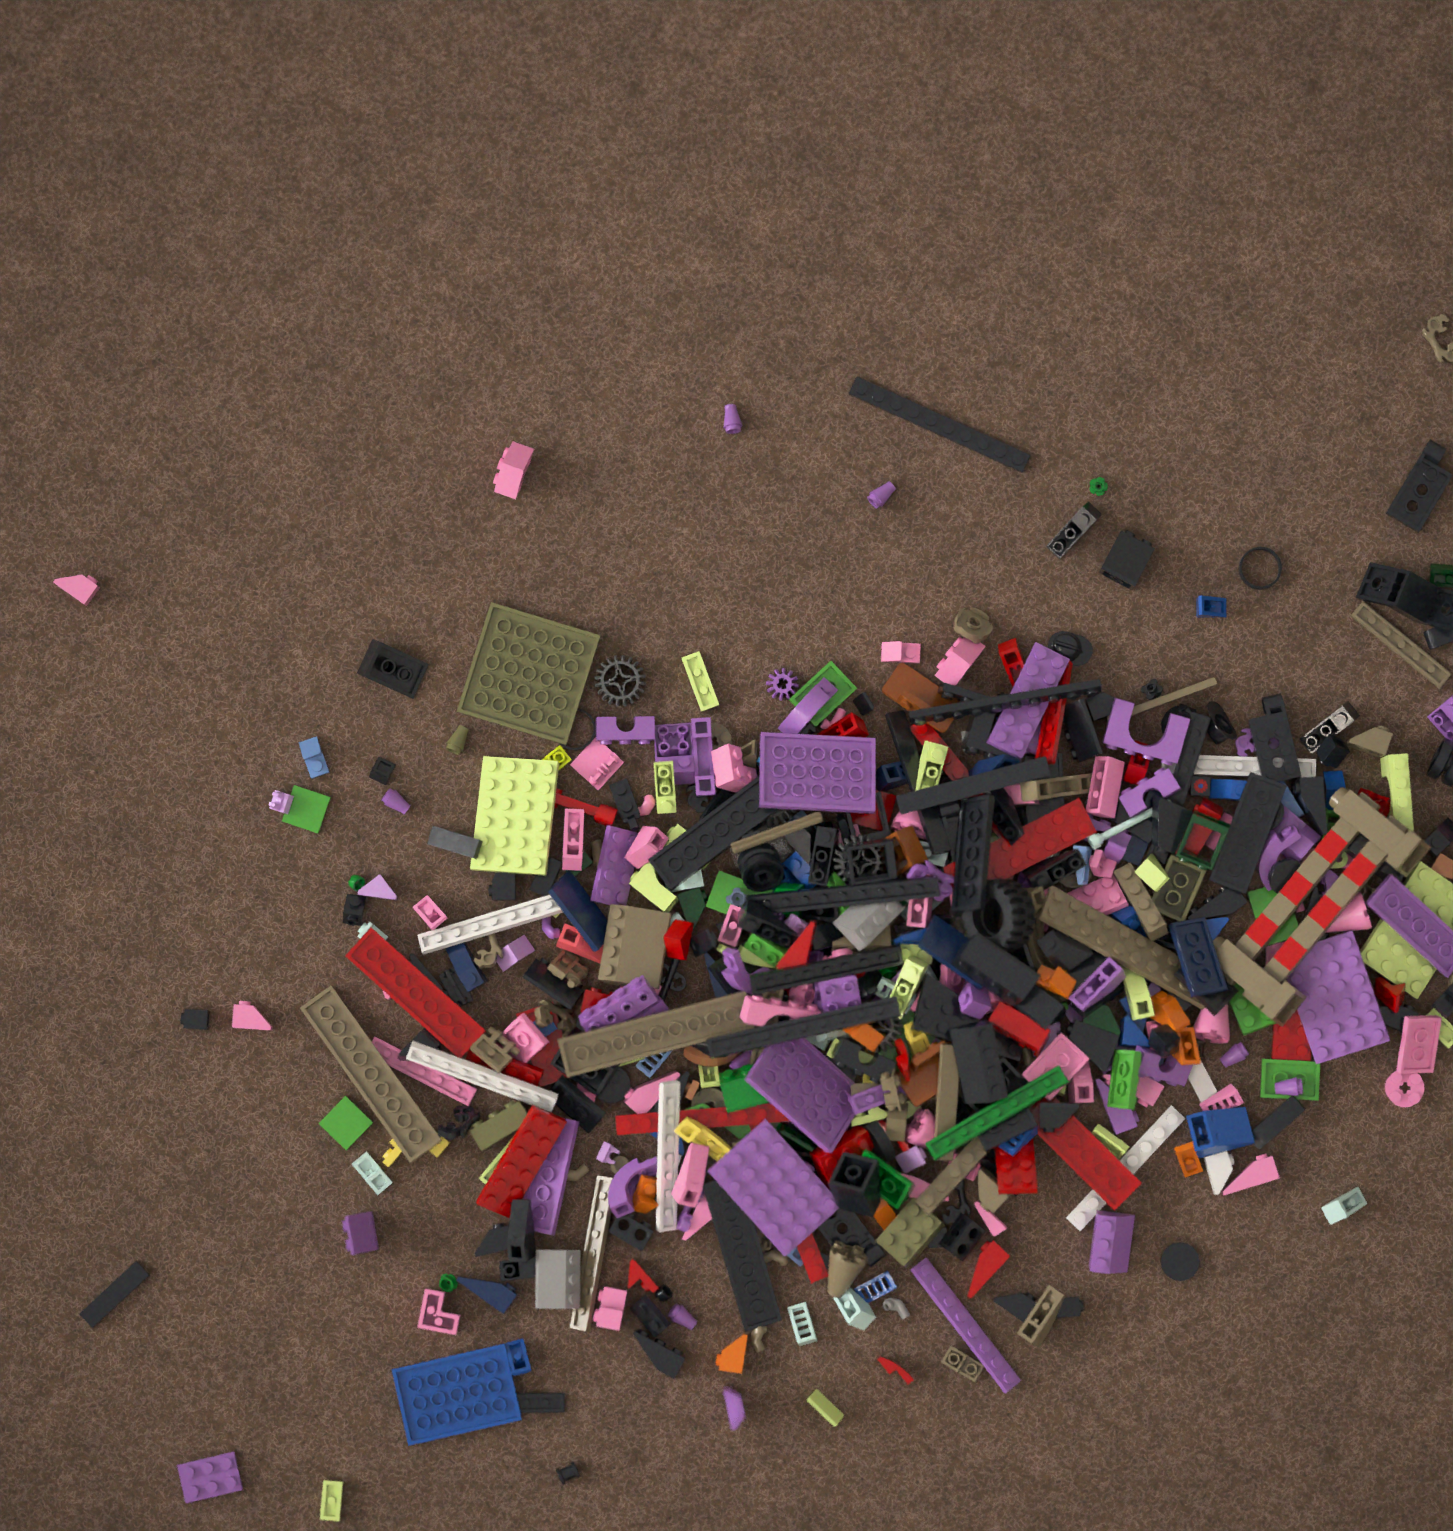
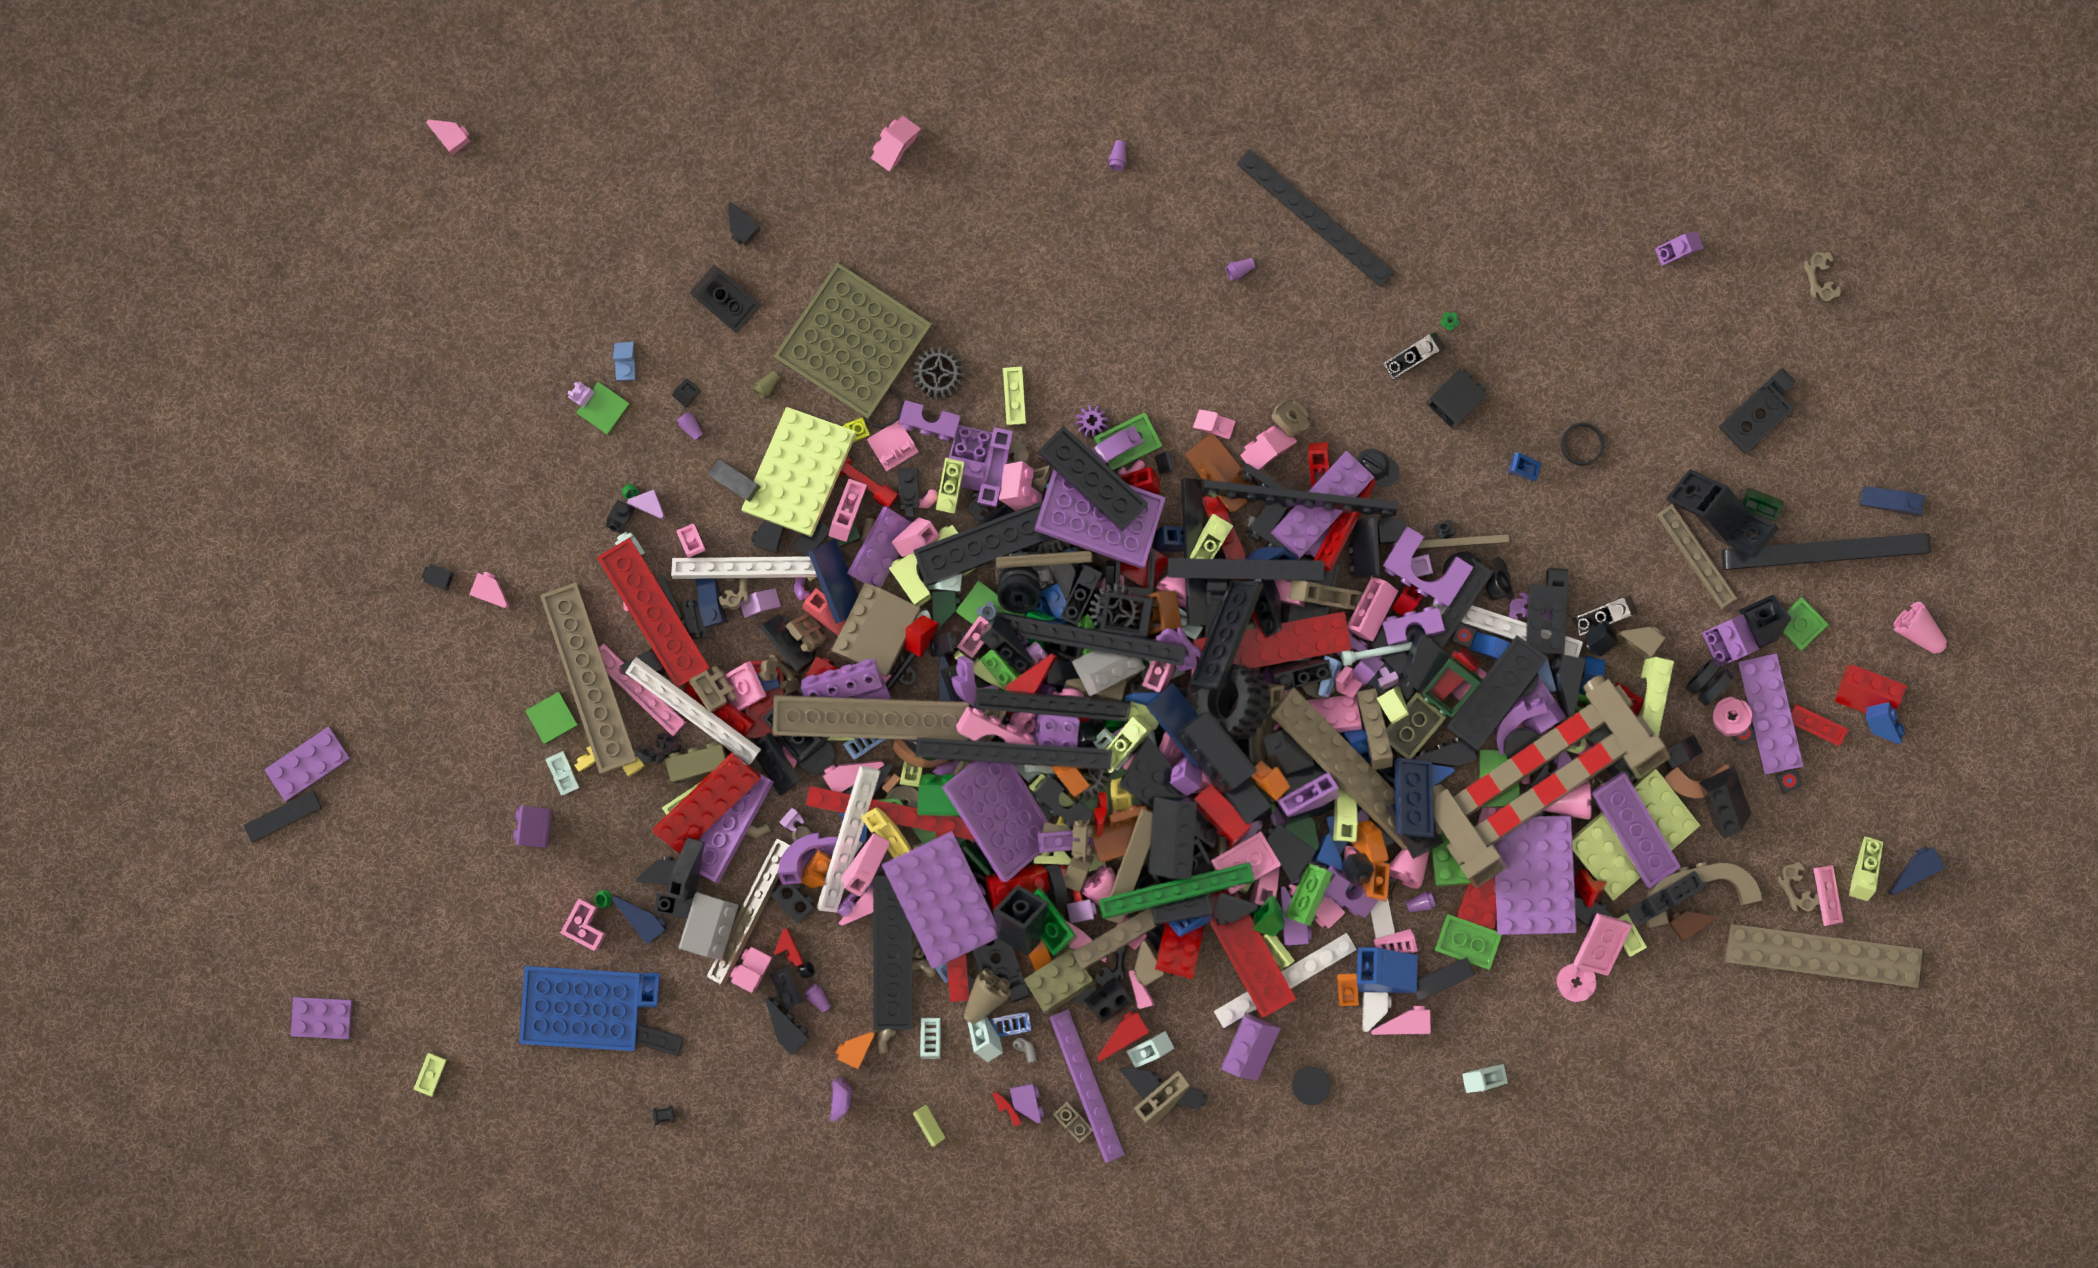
camera: 15 degrees right, 0 degrees up
(123, 1236) = (307, 764): none -> medium lavender plate
(387, 593) = (741, 225): none -> black slope
(800, 740) = (1092, 478): none -> black plate
(910, 1356) = (1025, 1101): none -> medium lavender slope
(1016, 1272) = (1150, 1049): none -> light aqua slope
(1093, 1112) = (1269, 917): none -> green slope
(1139, 850) = (1387, 679): none -> lavender tile
(1140, 731) = (1421, 565): none -> lavender tile
(1289, 1087) = (1467, 949): medium lavender cone -> none
(1298, 352) = (1679, 248): none -> medium lavender slope

